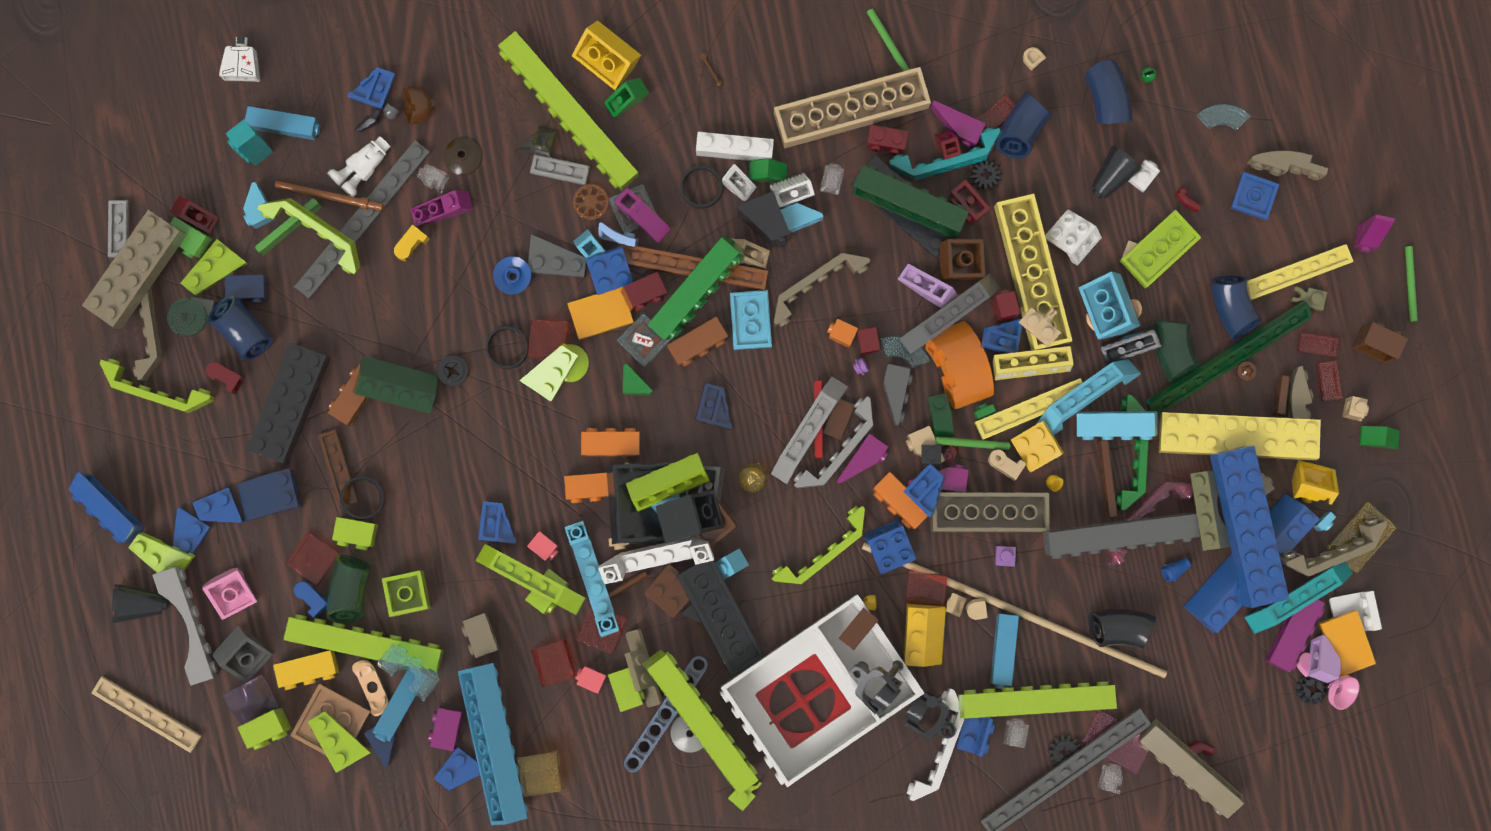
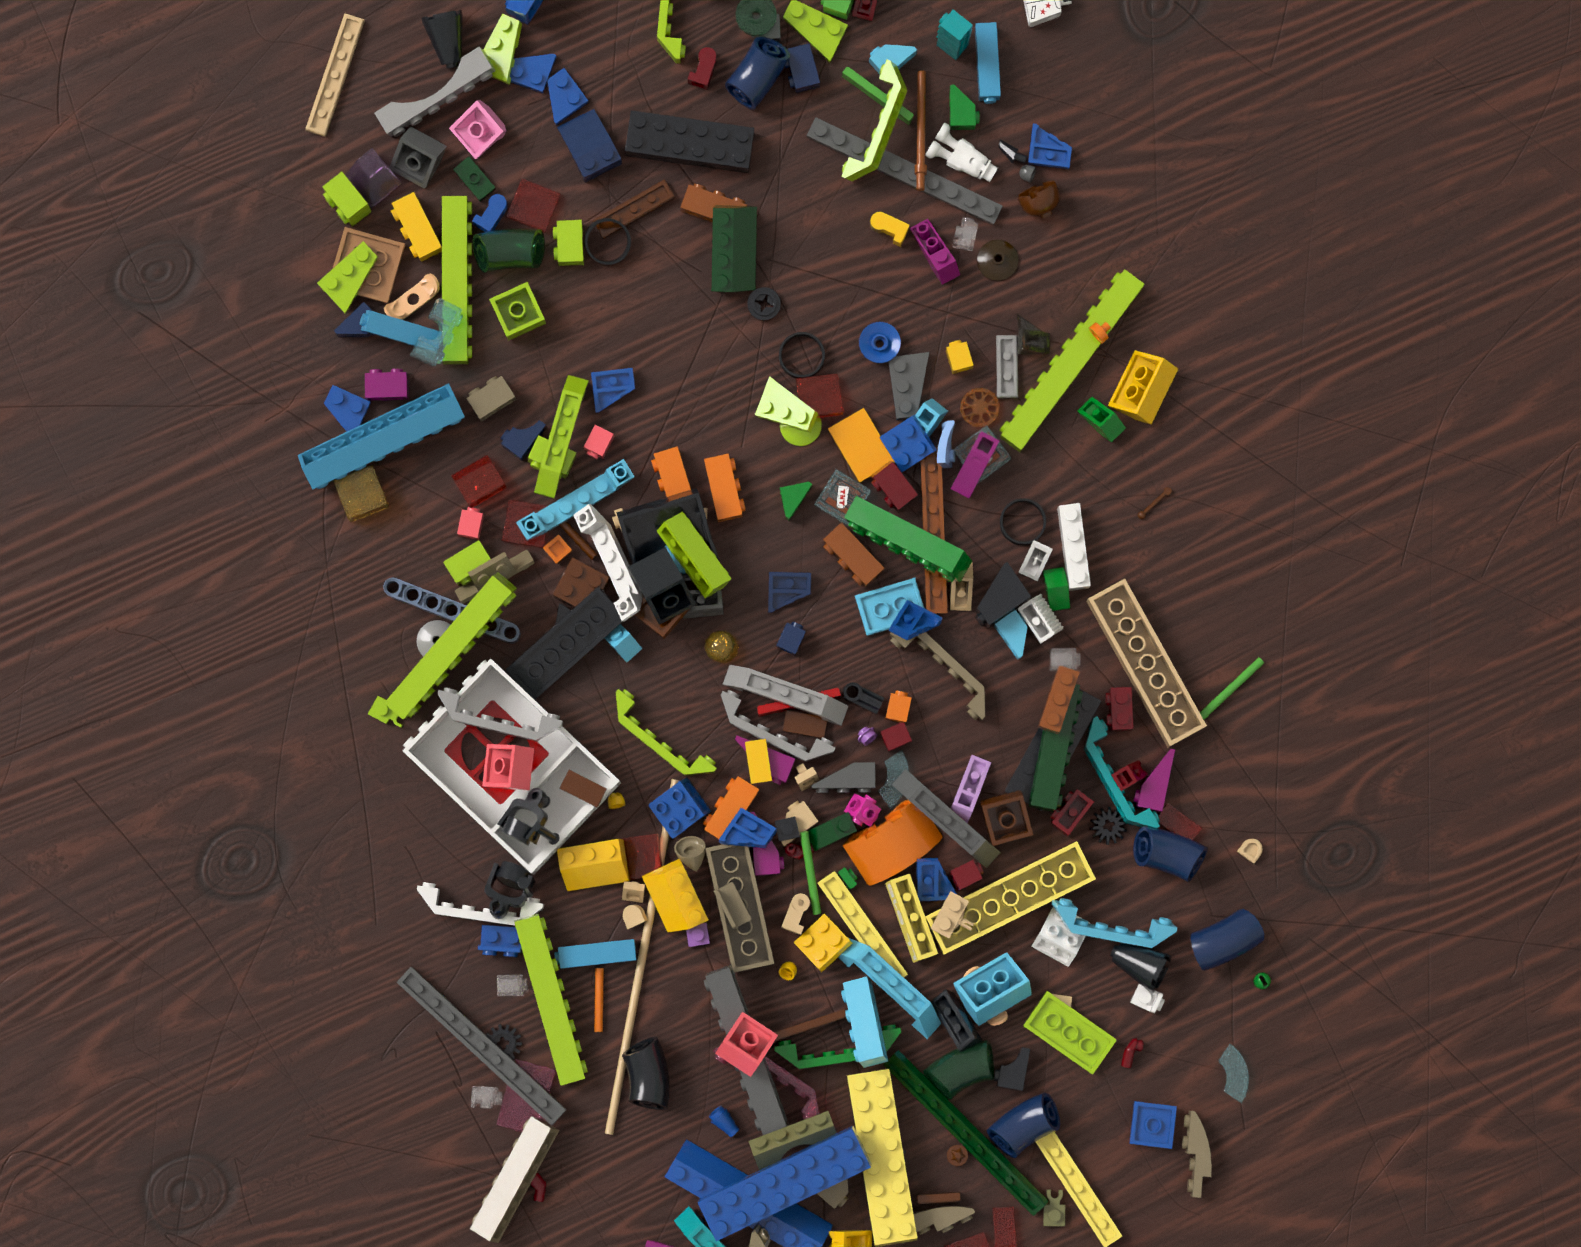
camera: 80 degrees right, 0 degrees up
(274, 607) = (474, 178): none -> dark green plate
(320, 156) = (962, 111): none -> green slope
(526, 616) = (522, 440): none -> dark blue arch
(541, 208) = (959, 356): none -> yellow brick
(549, 78) = (1099, 332): none -> orange tile
(632, 605) = (557, 549): none -> orange plate
(753, 732) = (547, 724): none -> light grey slope
(759, 413) = (791, 638): none -> dark blue brick
(770, 301) = (913, 621): none -> blue wing
(824, 693) = (508, 767): none -> coral slope
(827, 361) = (864, 698): none -> black piece
(865, 466) = (758, 761): none -> yellow tile
(873, 185) = (1058, 699): none -> dark orange brick
(887, 428) = (806, 777): none -> tan tile
(927, 384) = (863, 810): none -> dark pink brick
(932, 545) = (690, 851): none -> dark tan piece
(969, 568) = (675, 897): none -> yellow slope
(990, 518) = (732, 905): none -> dark tan panel
(1044, 657) = (599, 981): none -> orange bar
(1090, 154) = (1158, 930): none -> medium azure slope
(1120, 532) = (746, 1044): none -> coral slope
(1186, 305) = (1013, 1074): none -> black arch

